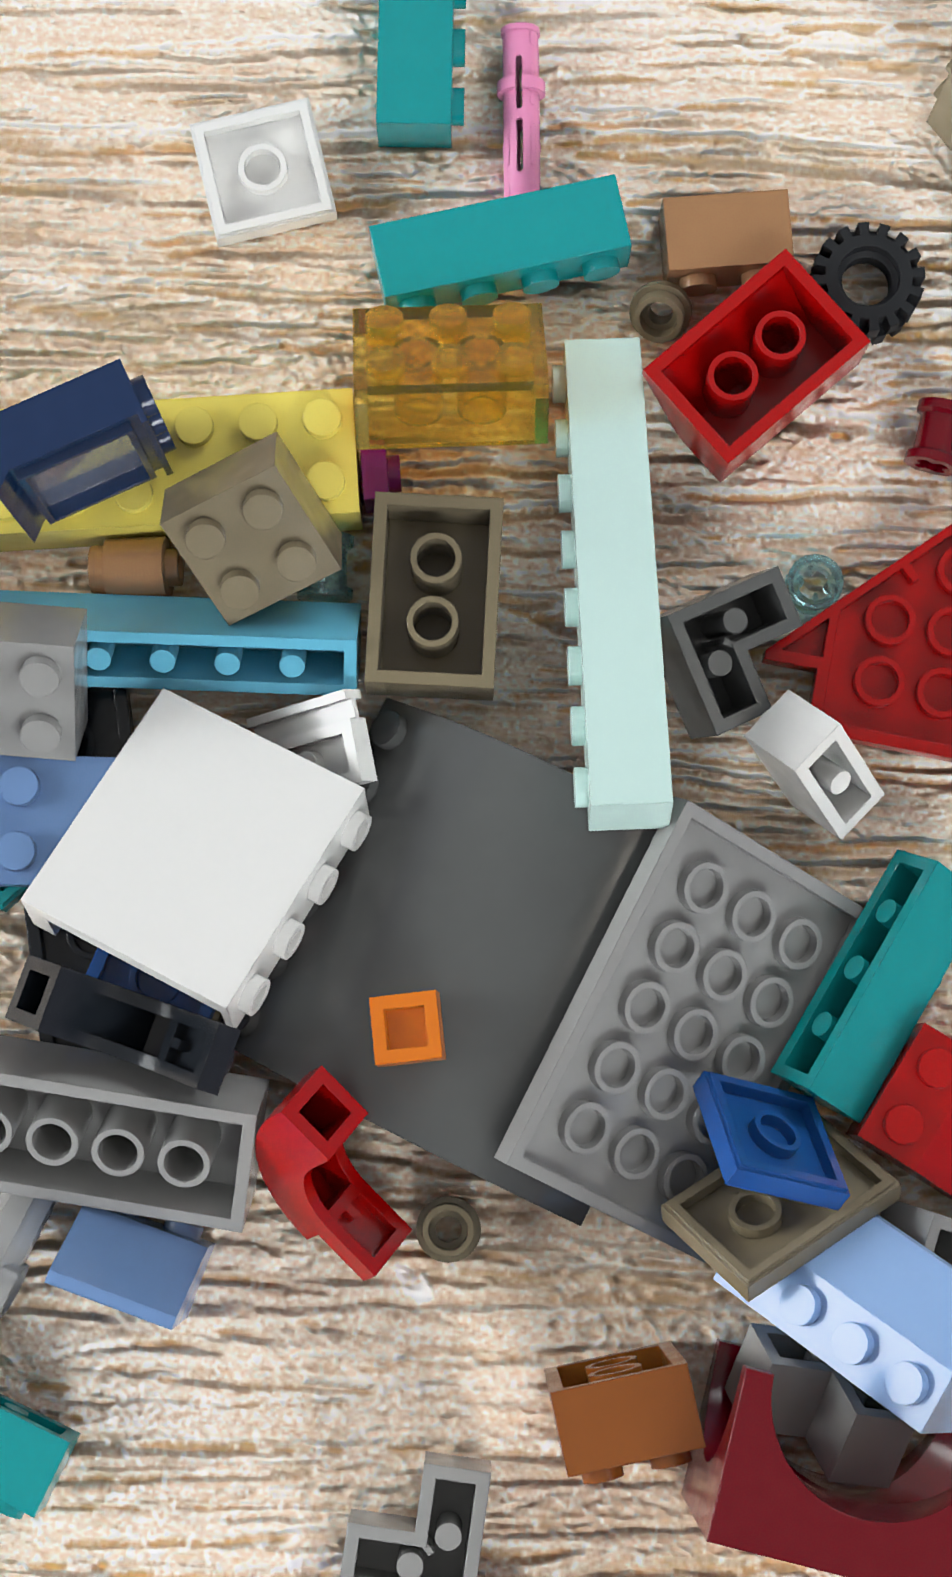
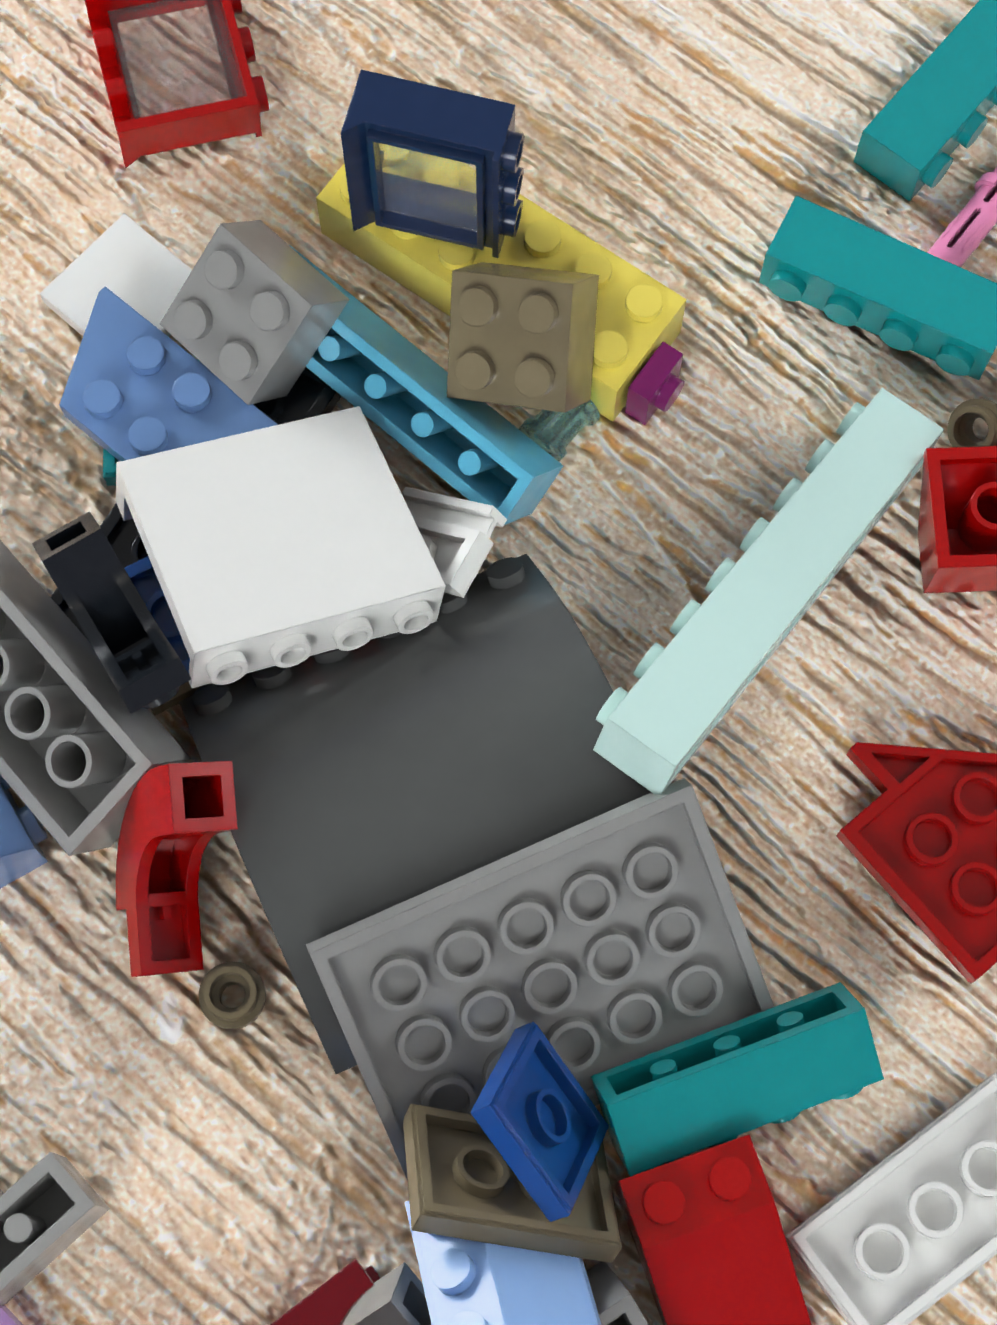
camera: 40 degrees right, 10 degrees down
(135, 566) = (414, 314): medium nougat brick -> none
(263, 172) = (750, 116): white tile -> none
(407, 1028) = (322, 786): orange plate -> none
(433, 596) = (623, 501): dark tan brick -> none
(450, 376) = (769, 346): clear yellow brick -> none
(624, 1412) = (233, 1236): dark orange brick -> none
(709, 646) = (809, 698): dark grey brick -> none
(814, 764) = (823, 855): white brick -> none
(832, 587) = (951, 710): clear light blue bush -> none

